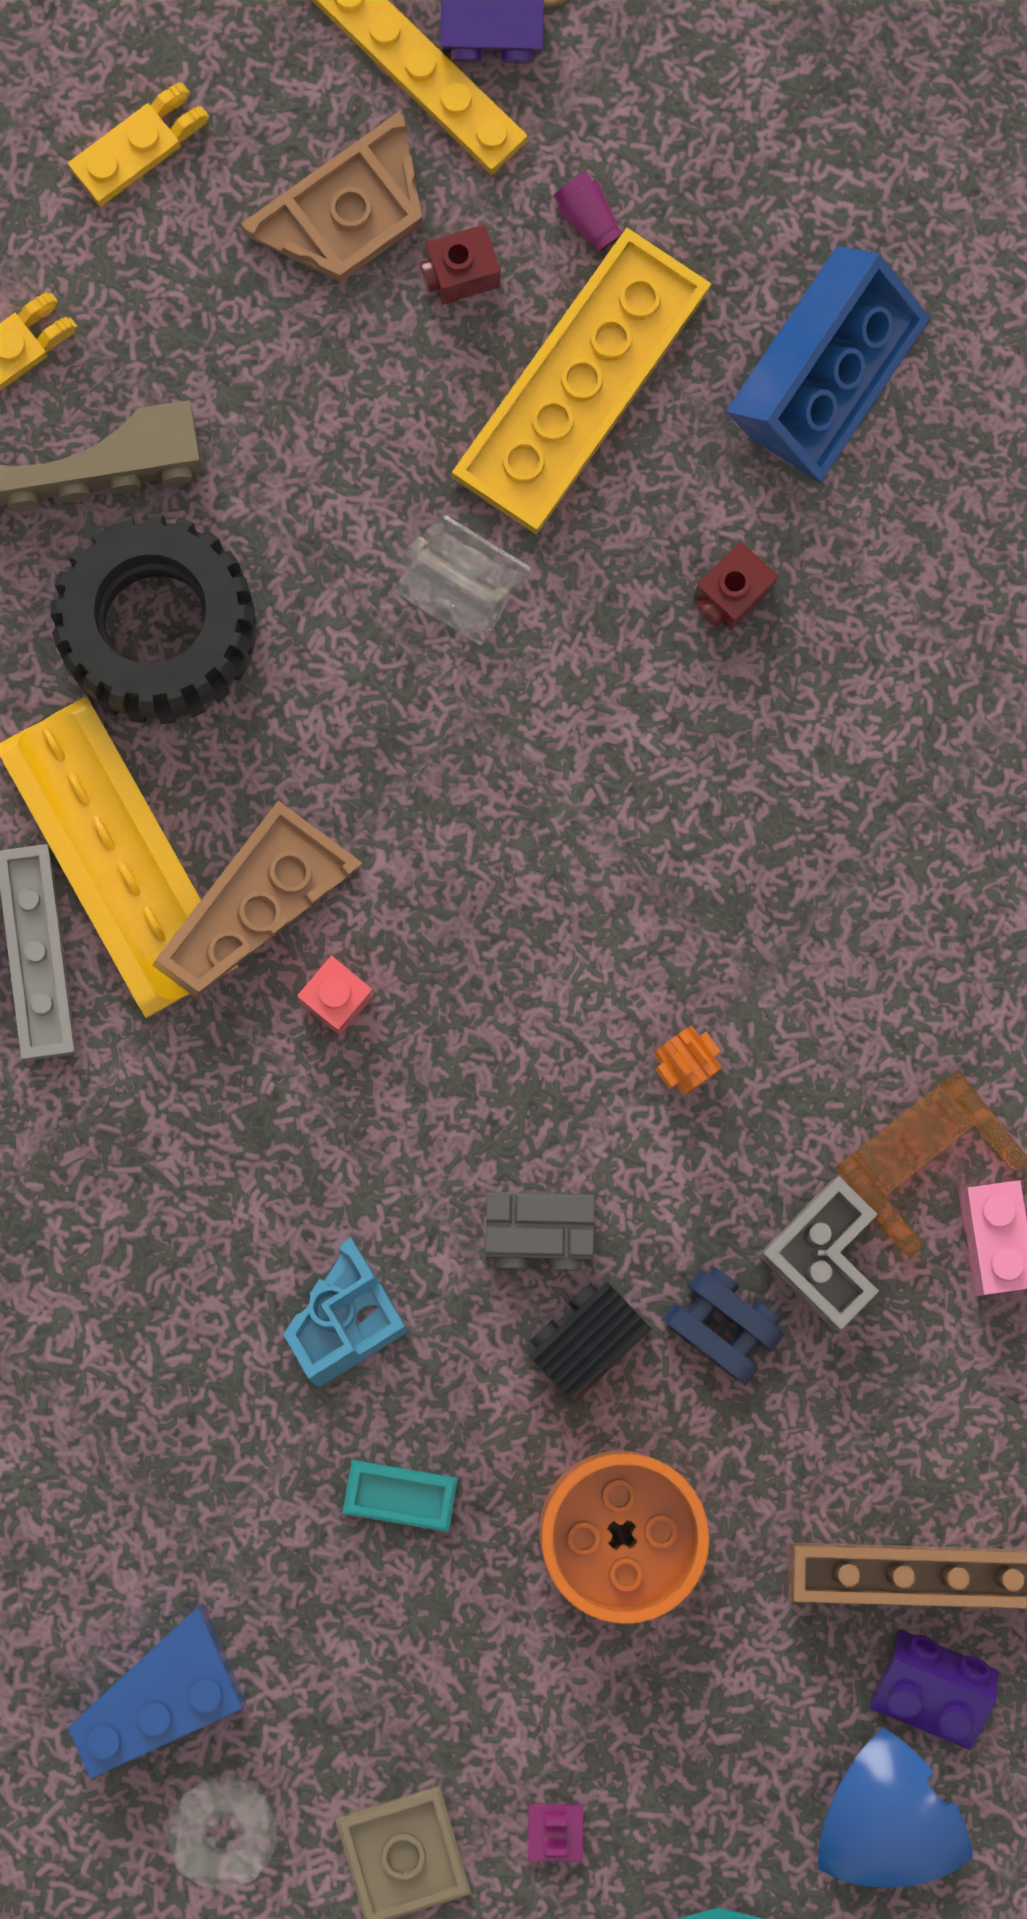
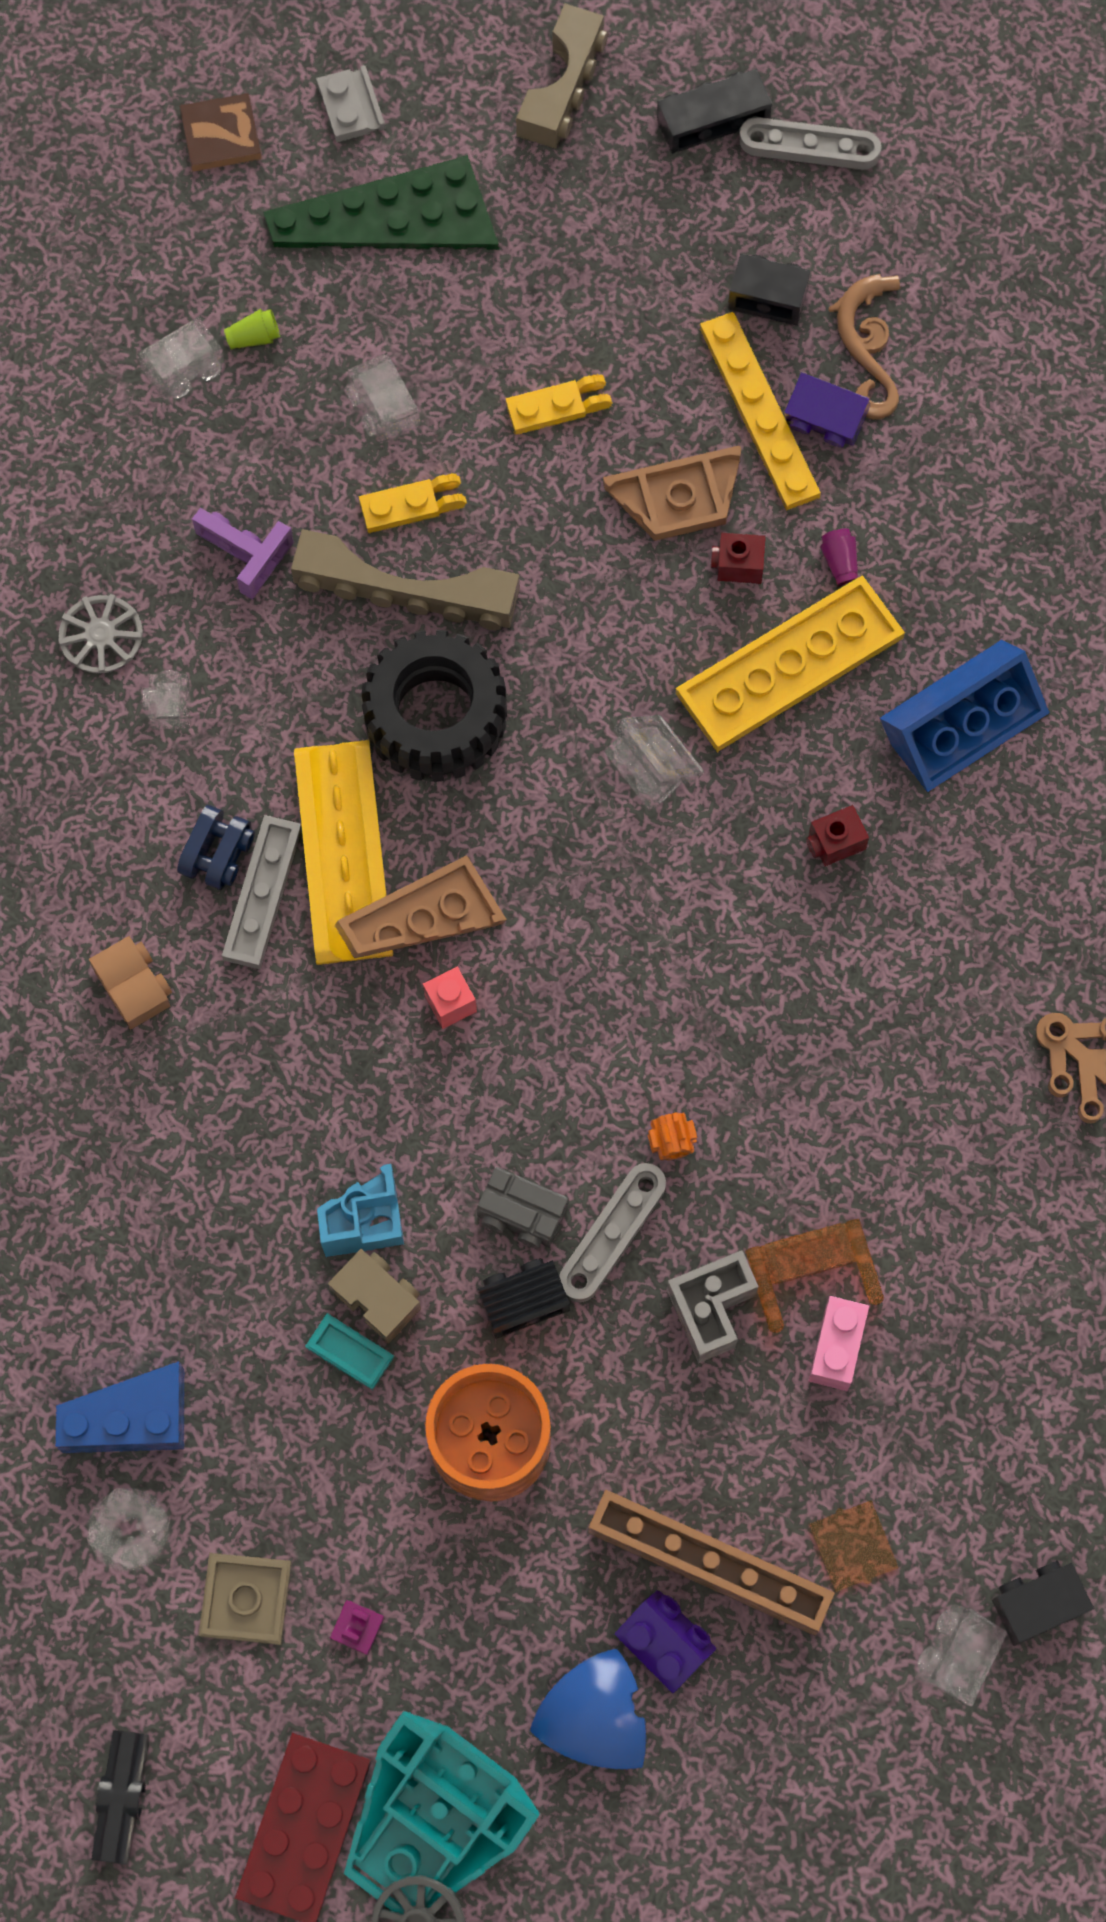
camera: 30 degrees right, 10 degrees down
(411, 1413) = (369, 1286): none -> dark tan brick
(663, 1210) = (613, 1232): none -> light grey plate
(756, 1324) = (644, 1334): dark blue brick -> none

